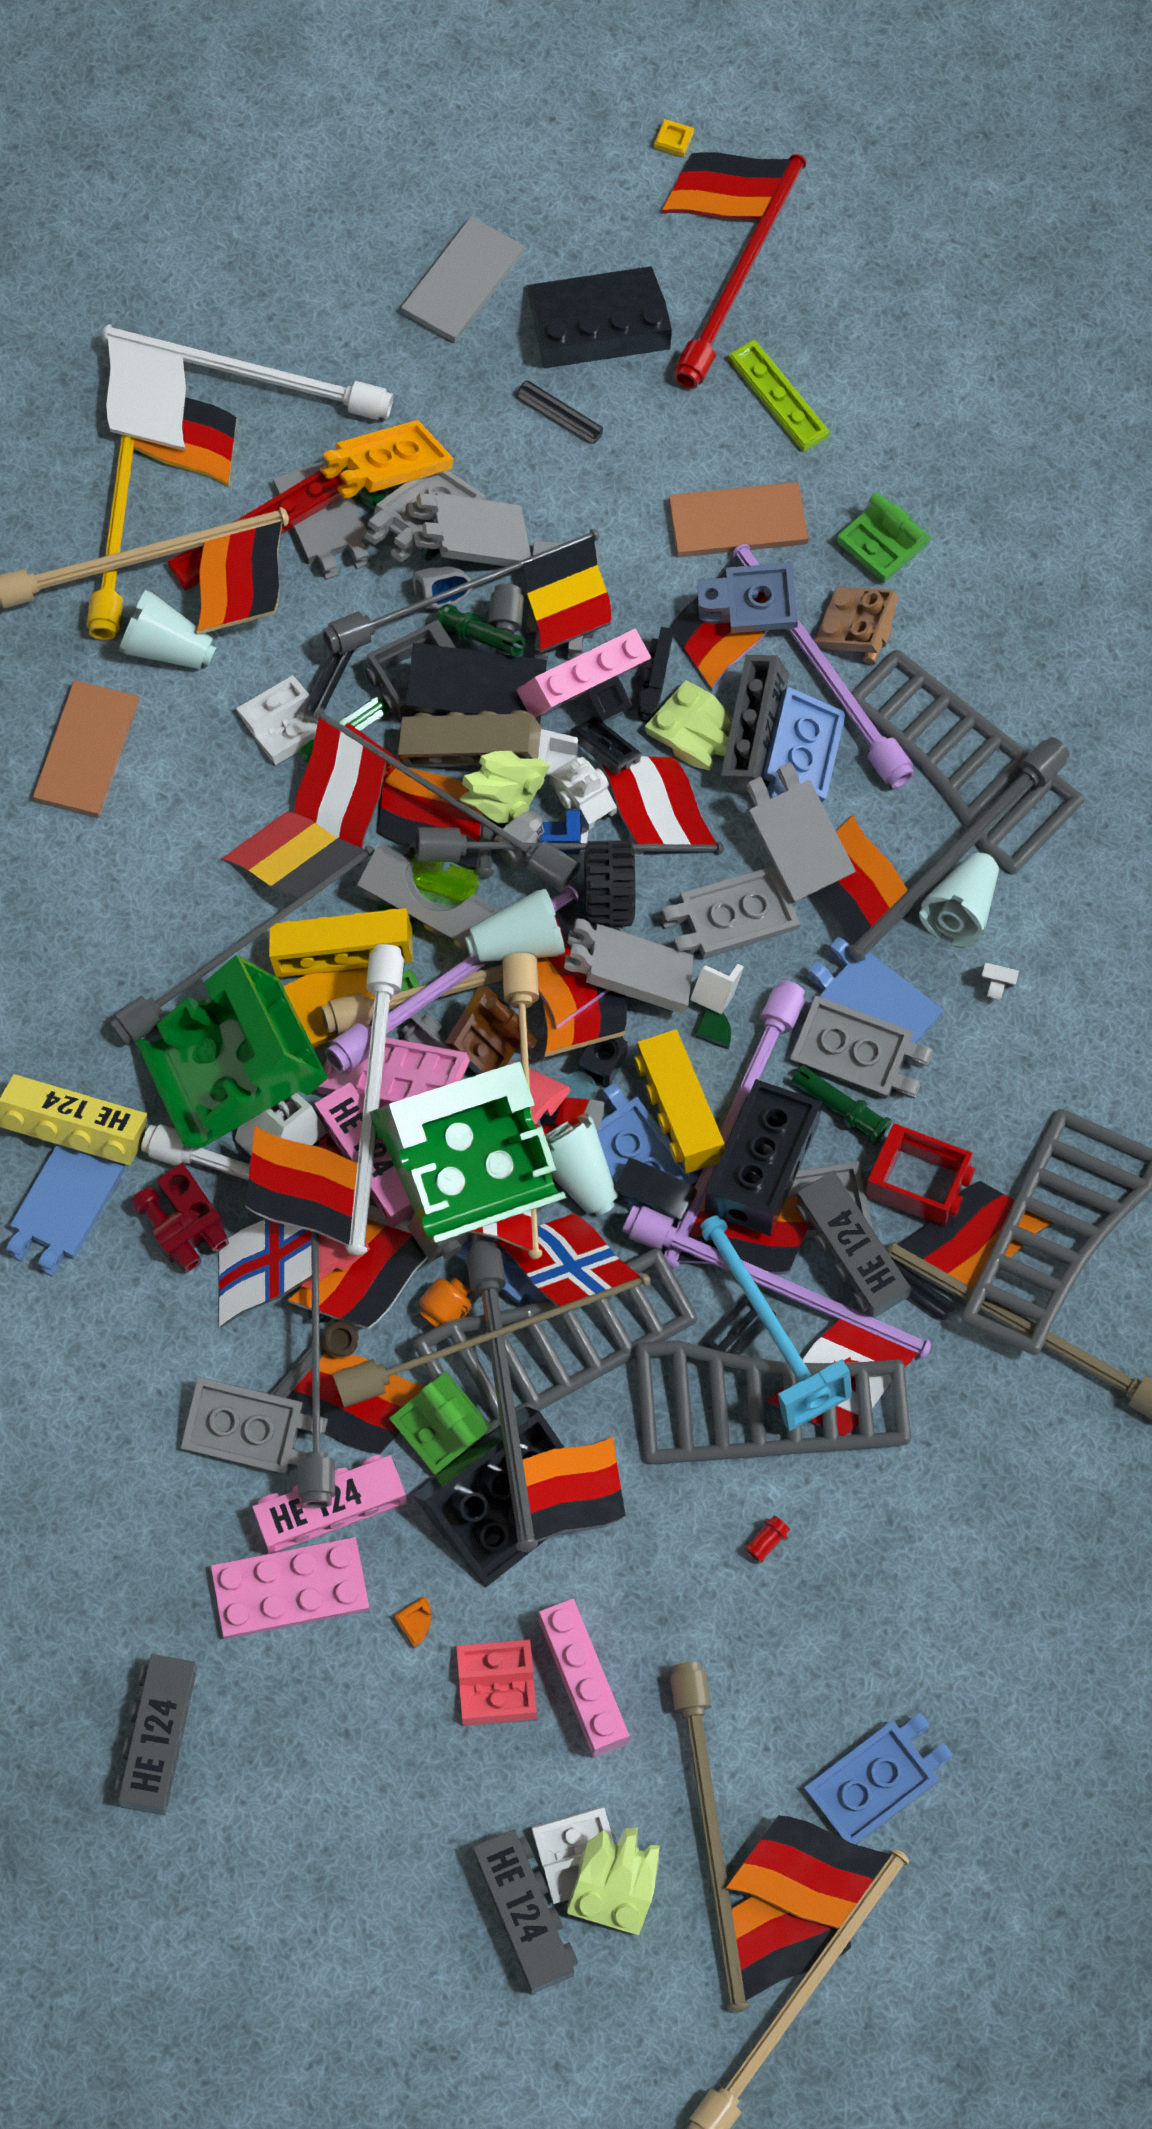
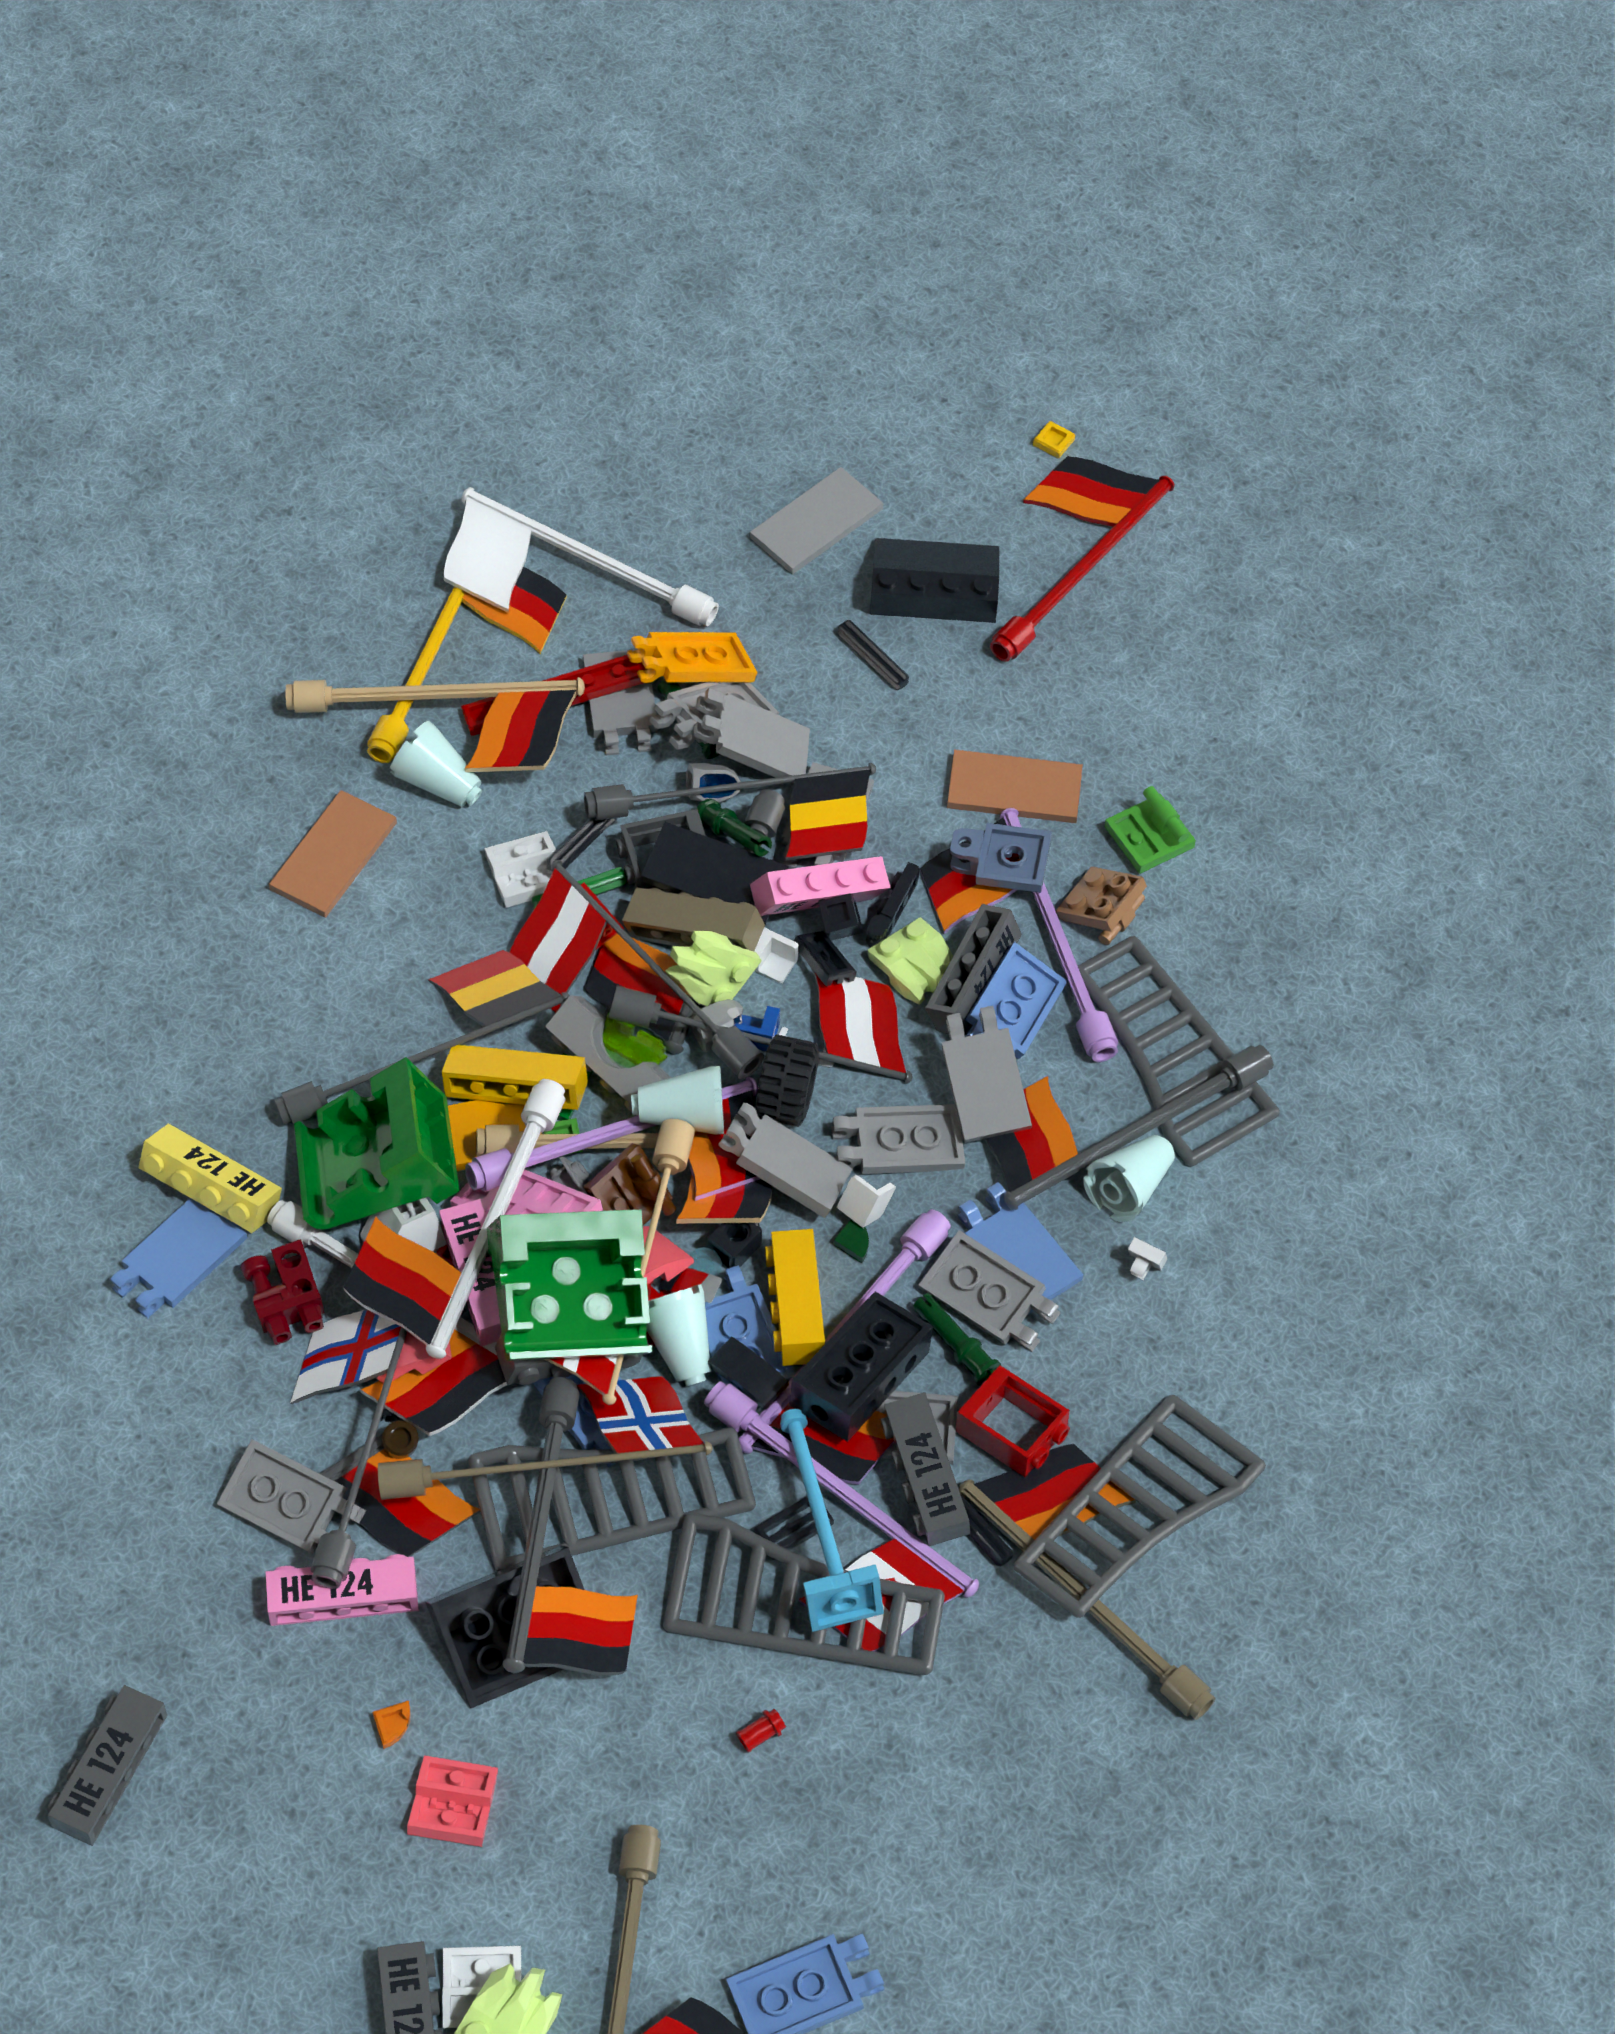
camera: 15 degrees right, 10 degrees down
(290, 1588) = (280, 1661): bright pink plate -> none
(440, 1422) = (472, 1538): bright green plate -> none
(445, 1302) = (513, 1428): orange head -> none
(583, 789) = (790, 991): white hinge -> none
(583, 1678) = (538, 1816): bright pink brick -> none
(779, 395) = (1087, 685): lime tile -> none

